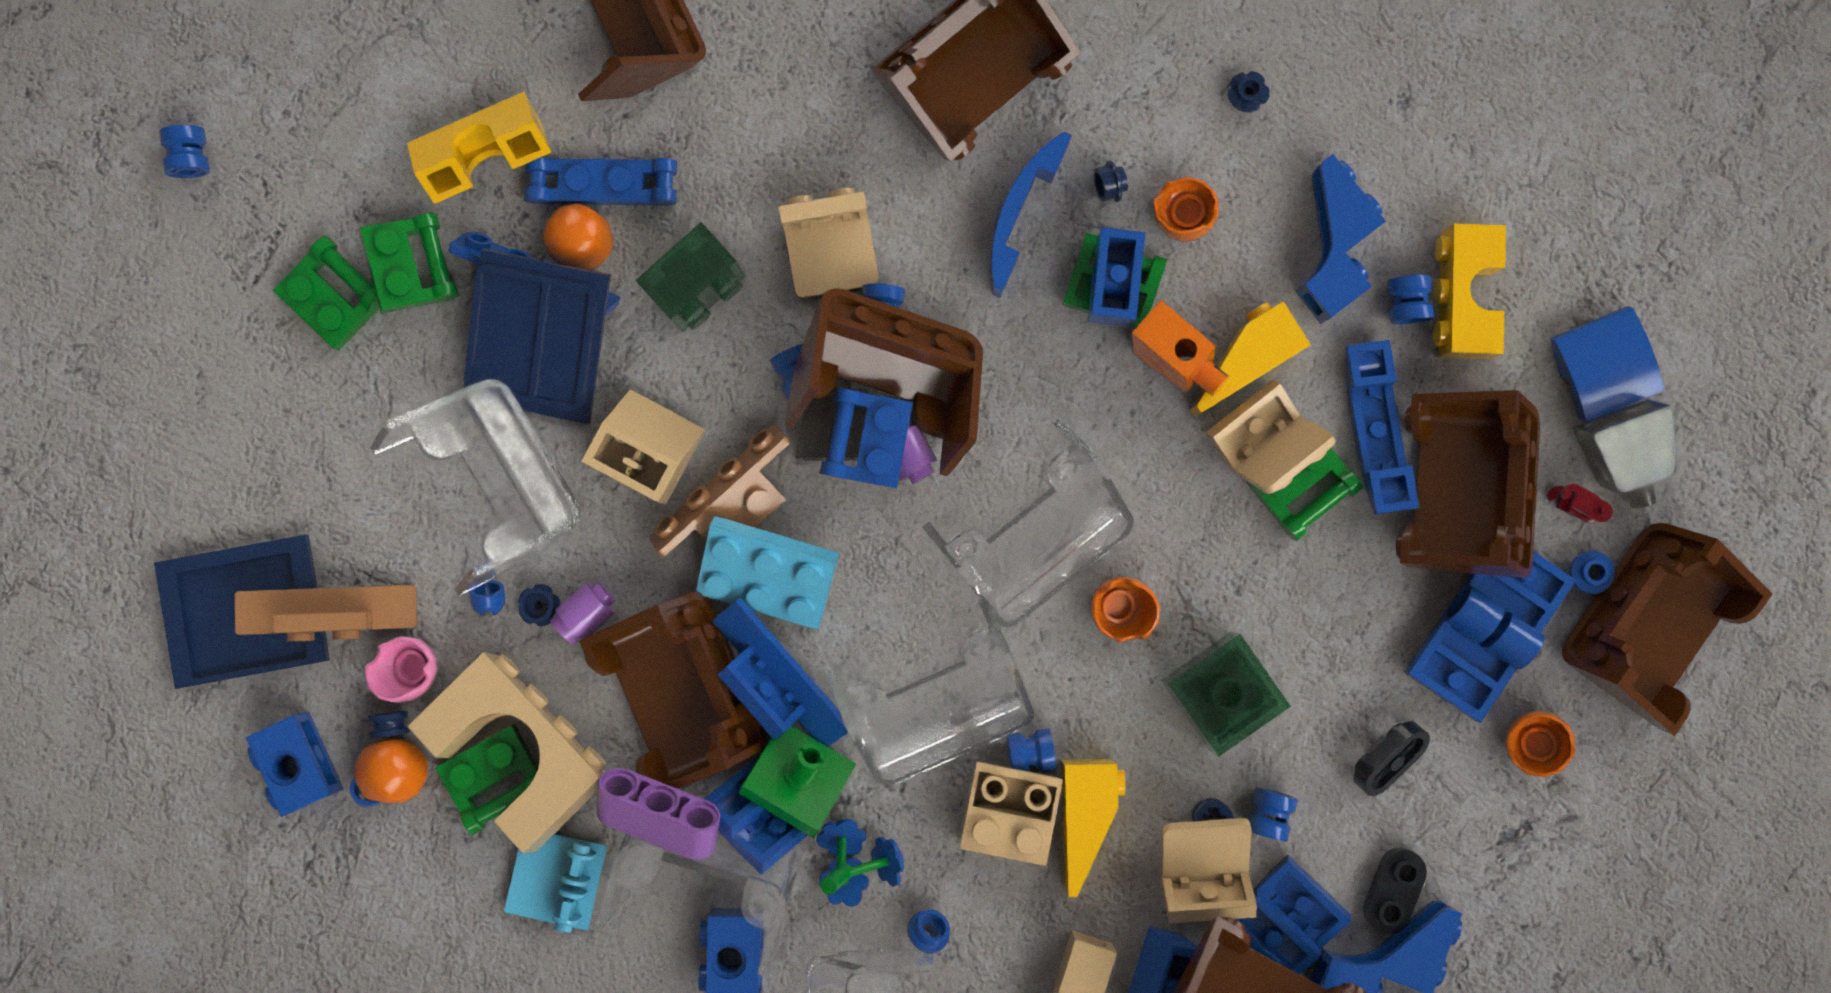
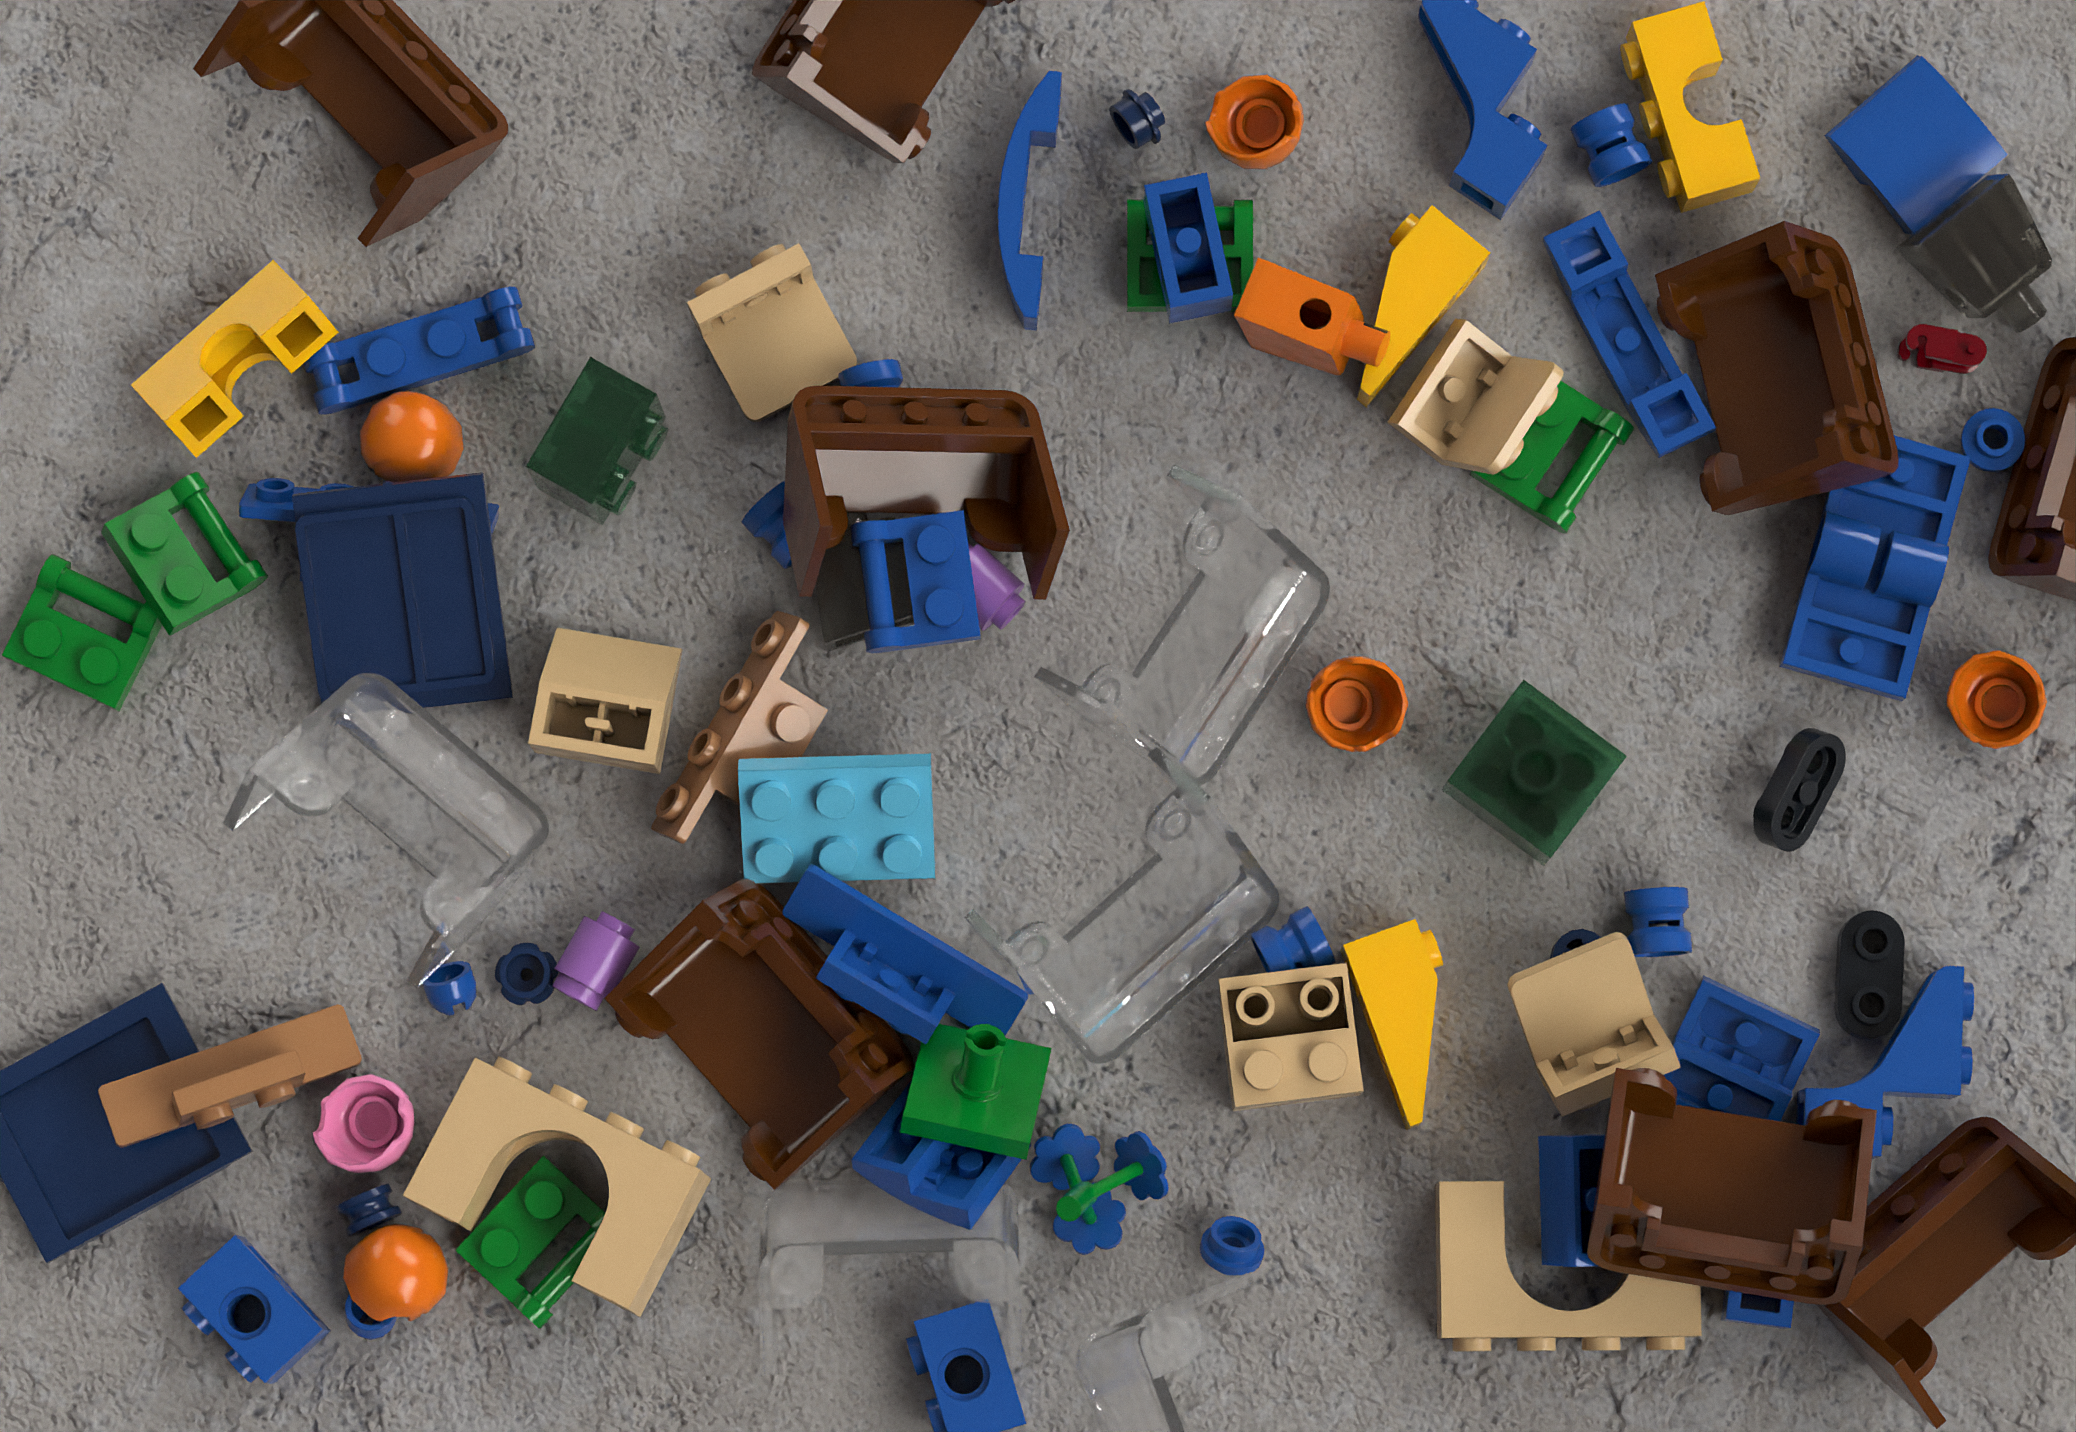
camera: 20 degrees left, 5 degrees down
(557, 882) = (680, 1354): medium azure hinge -> none
(657, 813) = (797, 1193): medium lavender beam -> none

